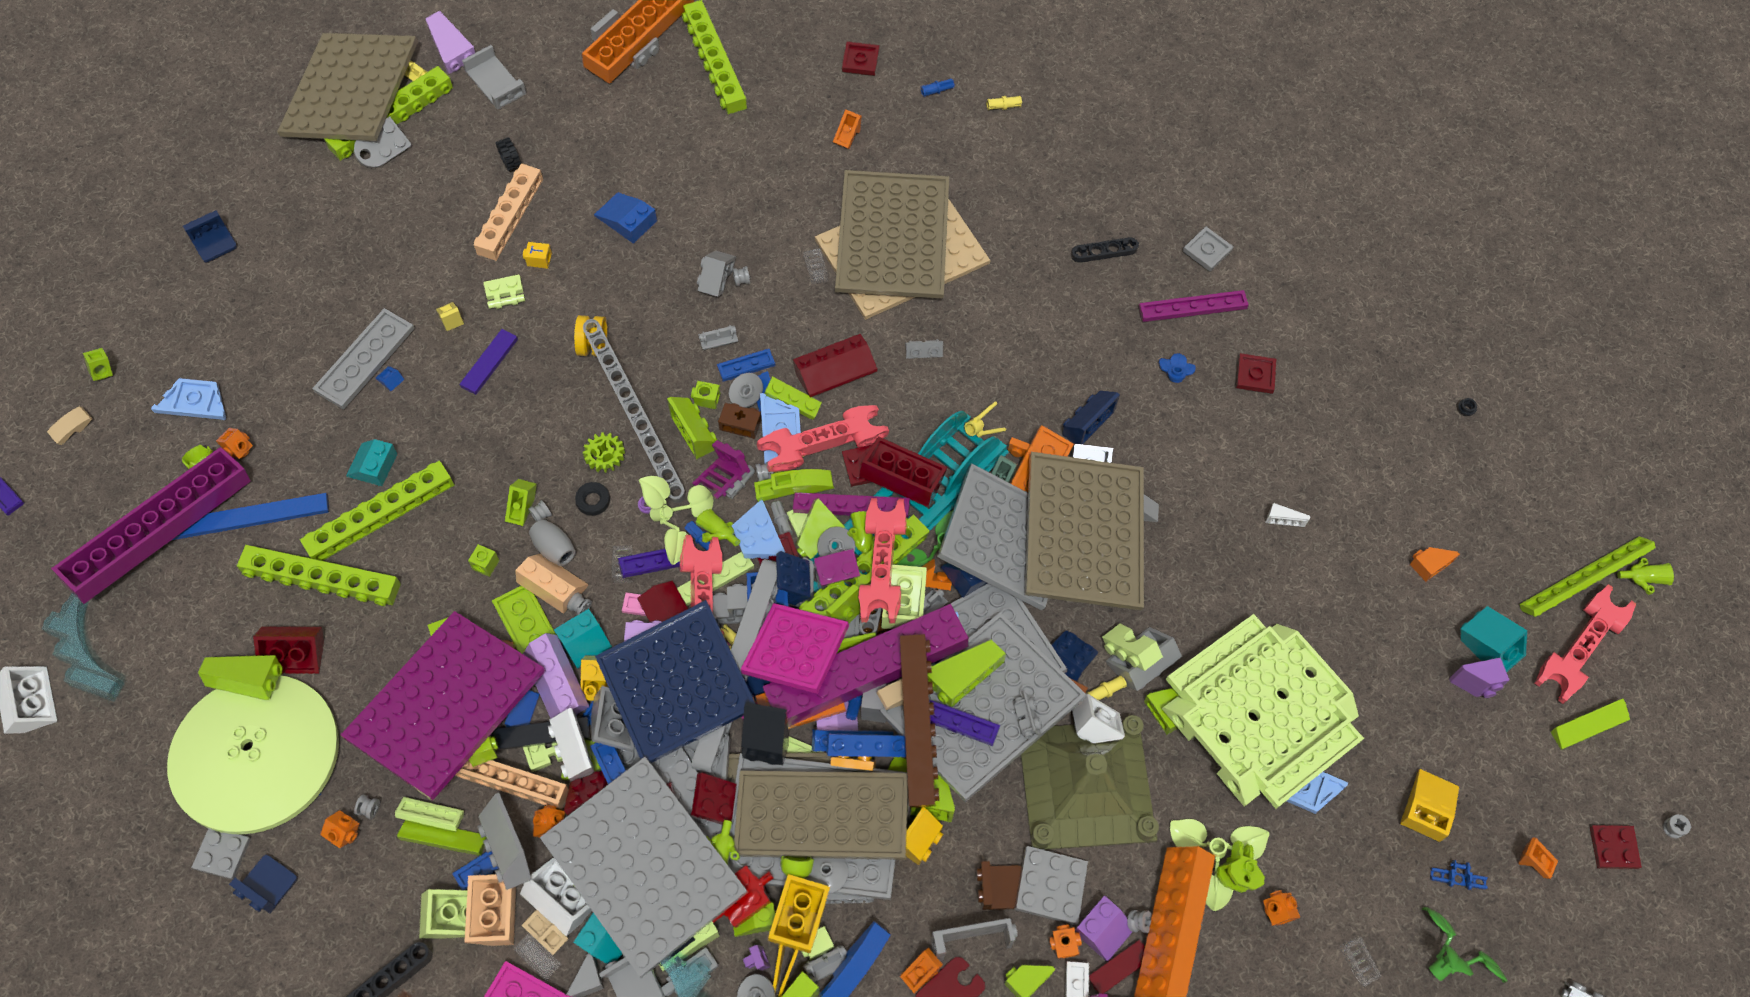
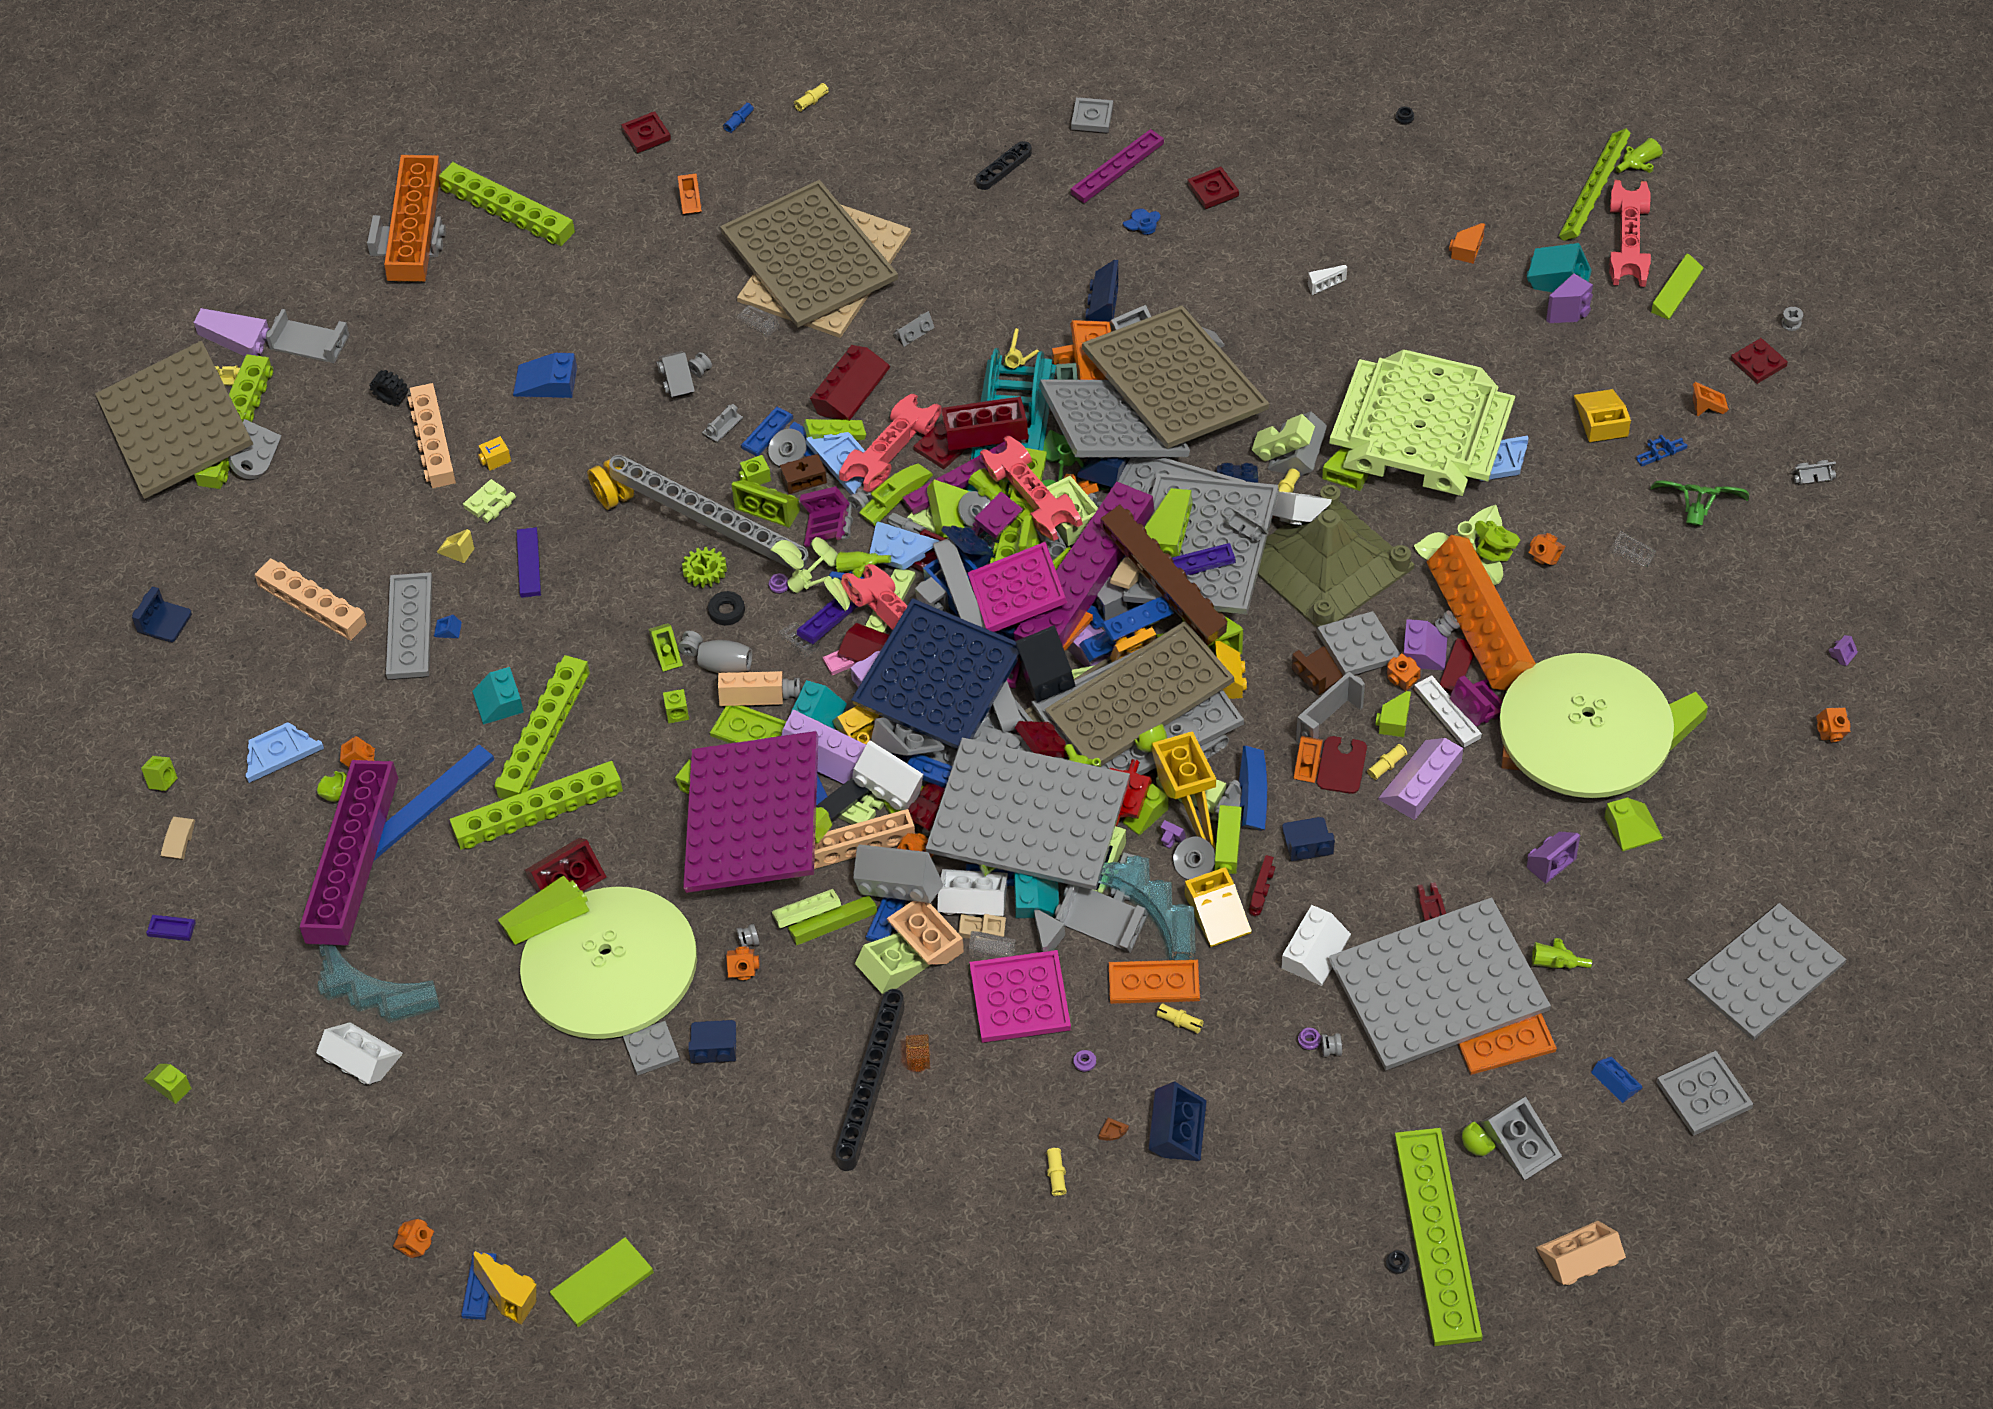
camera: 30 degrees left, 10 degrees down
(317, 291) = (311, 599): none -> light nougat brick

